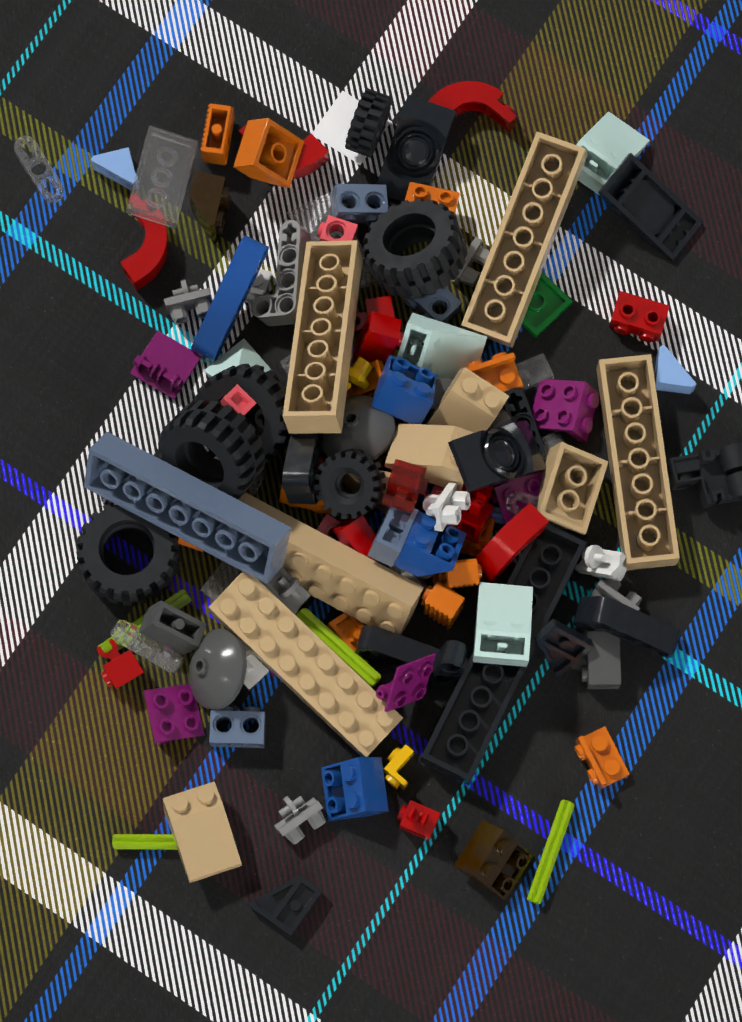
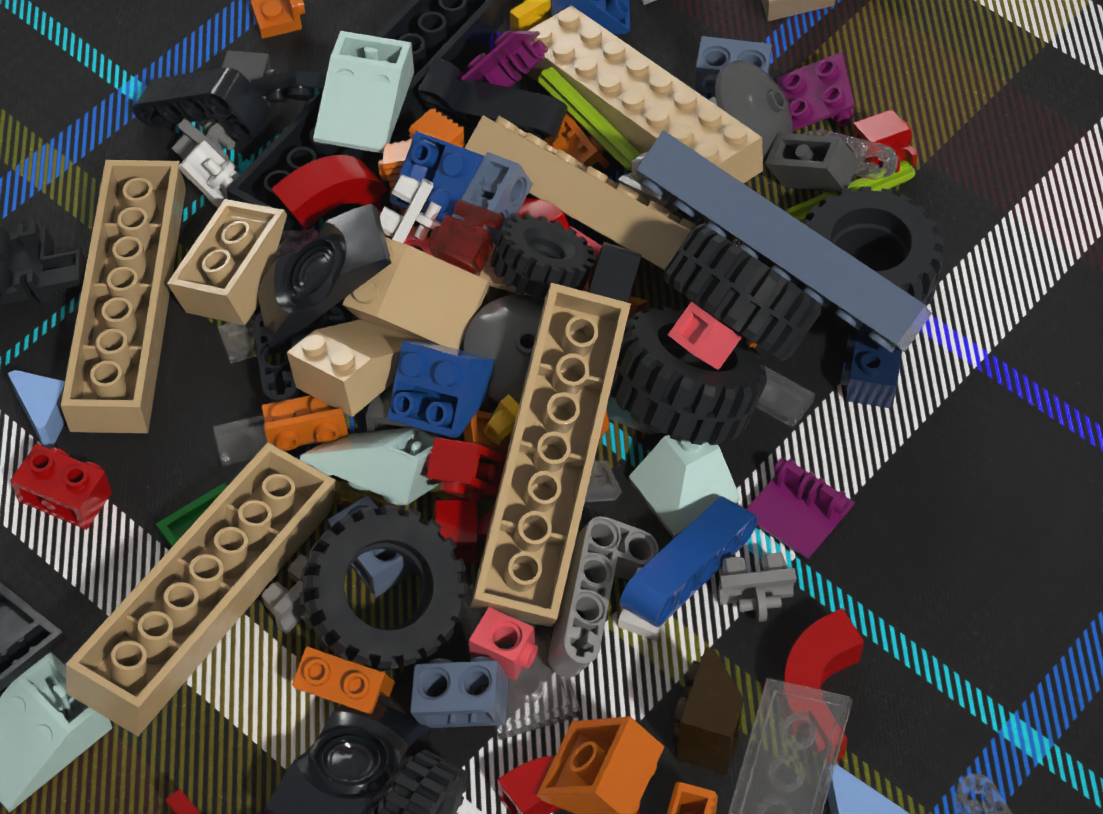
camera: 170 degrees left, 20 degrees down
(565, 407) = (211, 378): magenta bracket -> none

